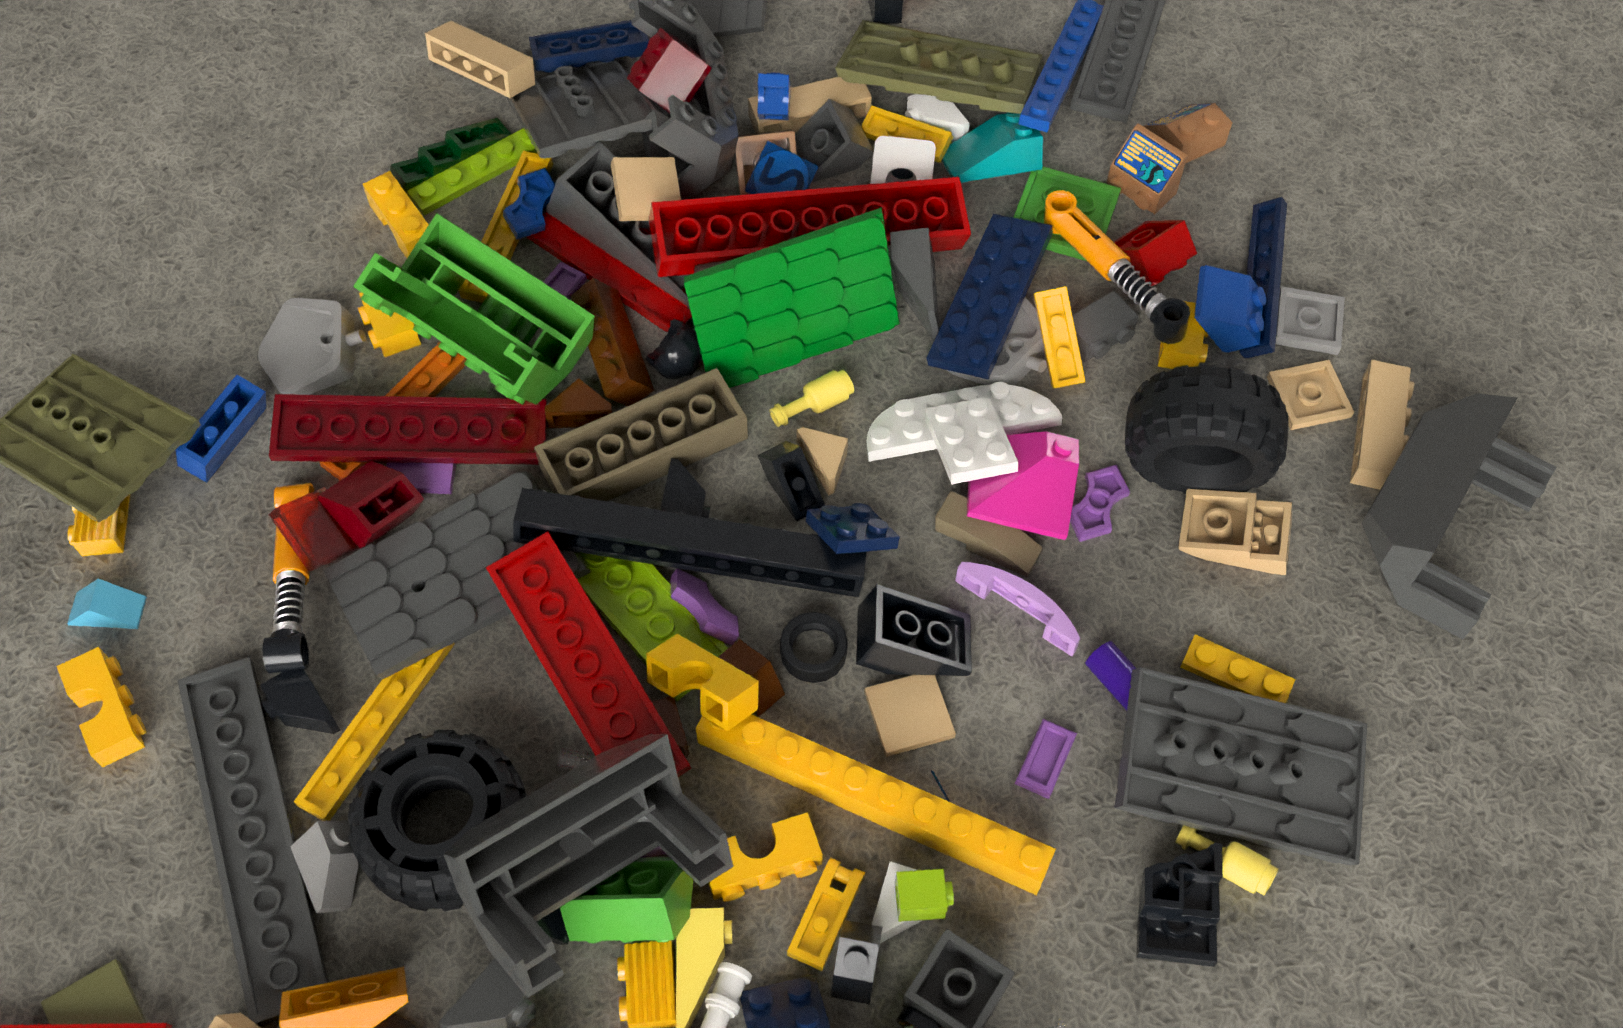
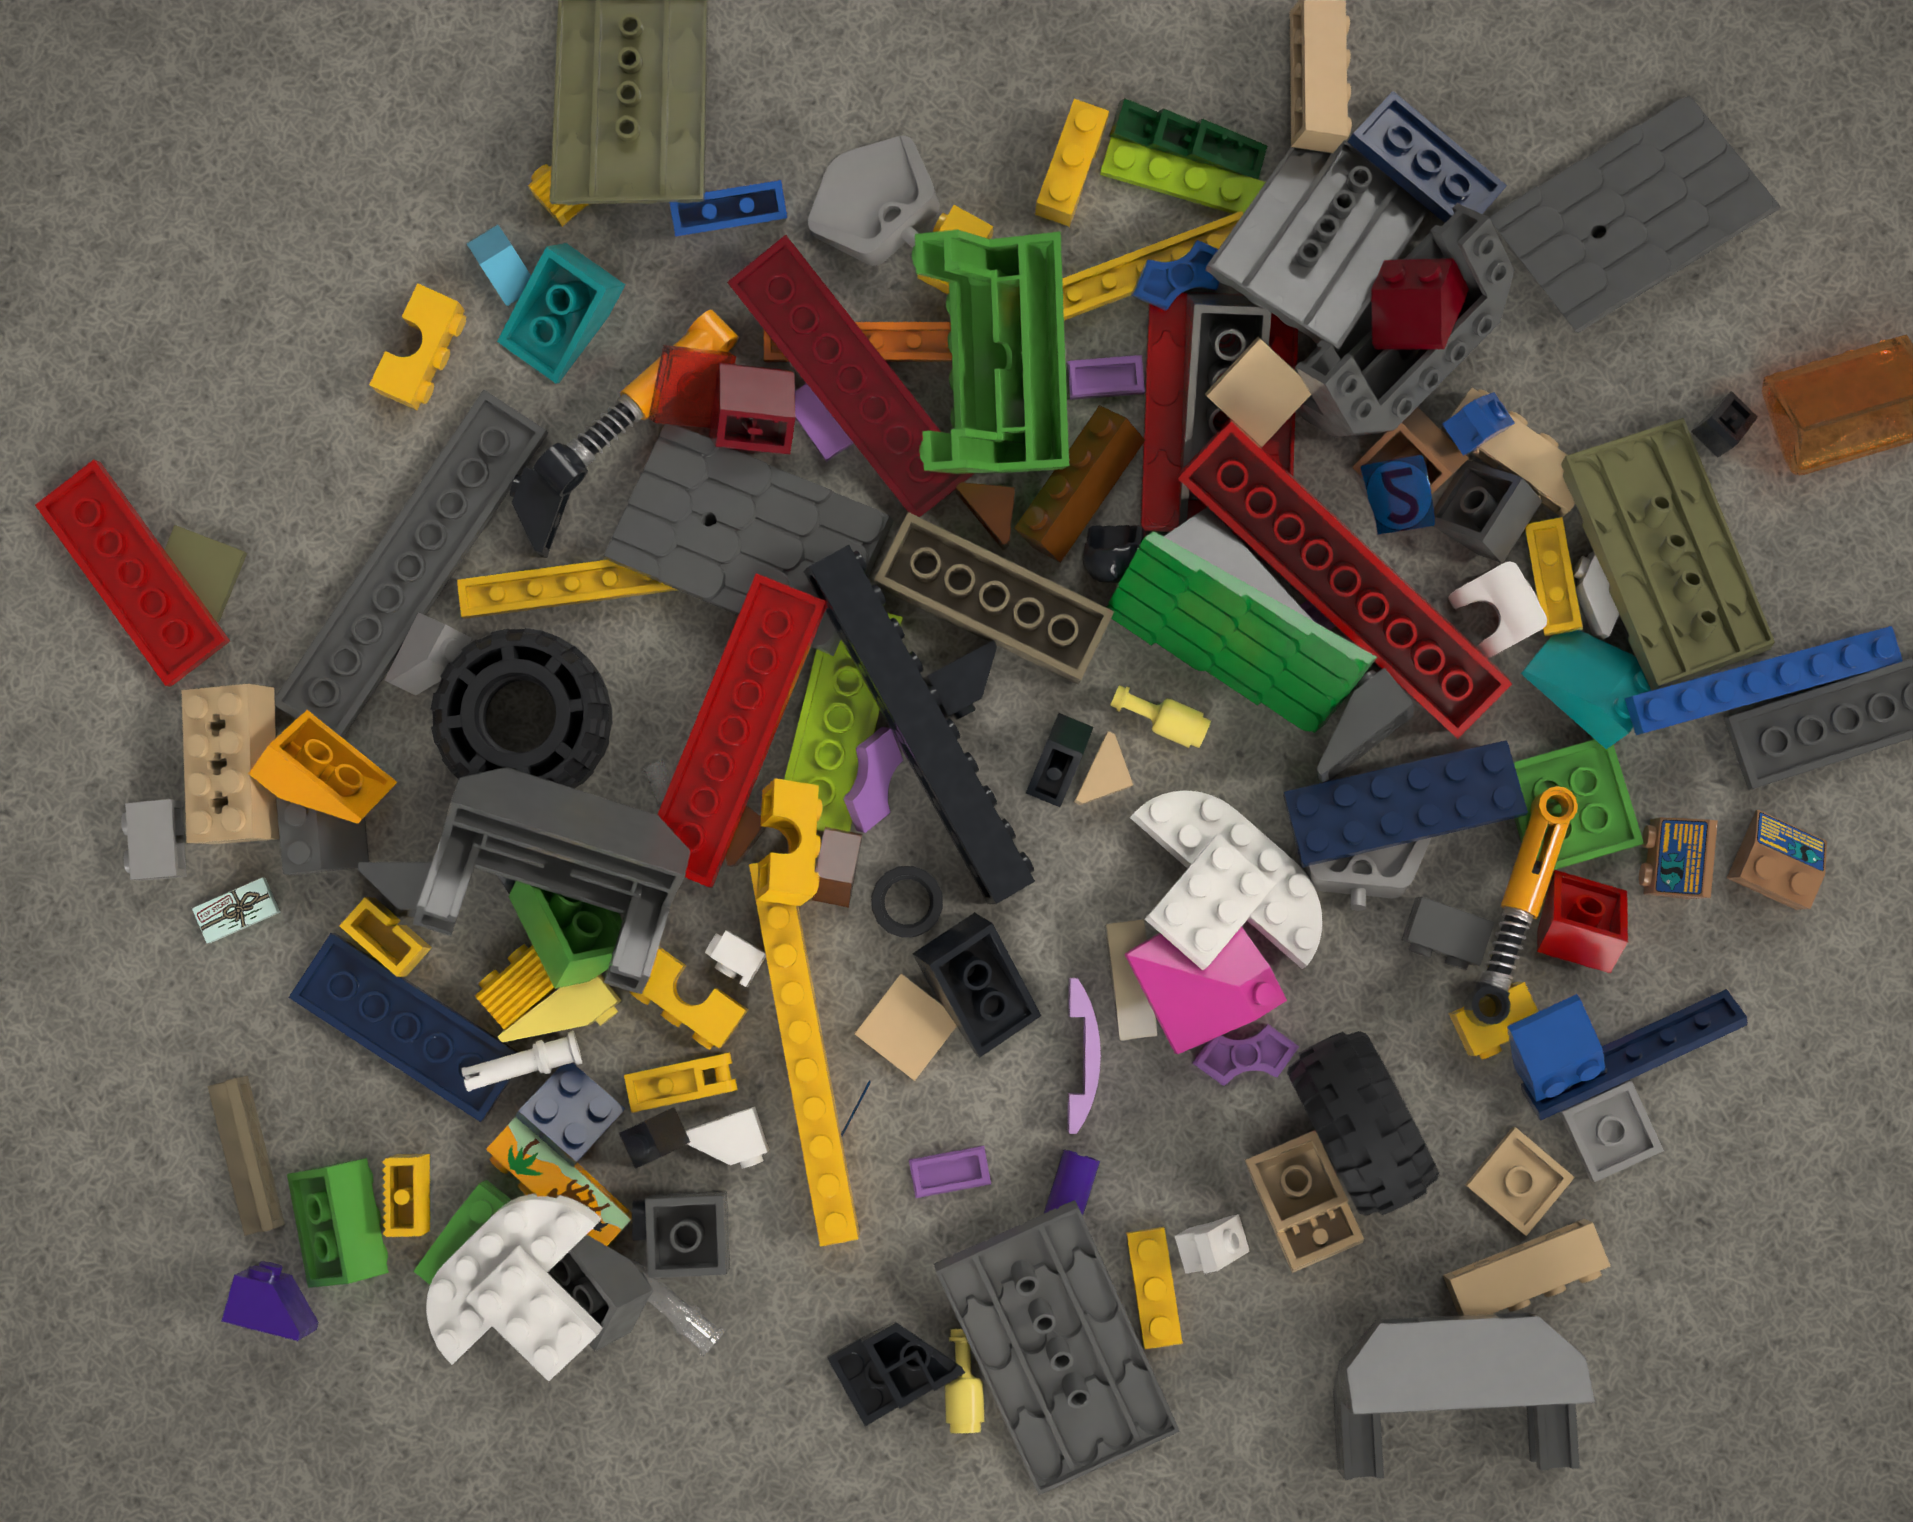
camera: 50 degrees right, 25 degrees up
(177, 589) = (560, 310): none -> teal slope
(759, 796) = (735, 956): none -> white brick
(852, 528) = (1040, 857): dark blue plate -> none
(922, 895) = (735, 1159): lime brick -> none
(1059, 337) = (1396, 905): yellow plate -> none
(1230, 606) = (1212, 1245): none -> white brick

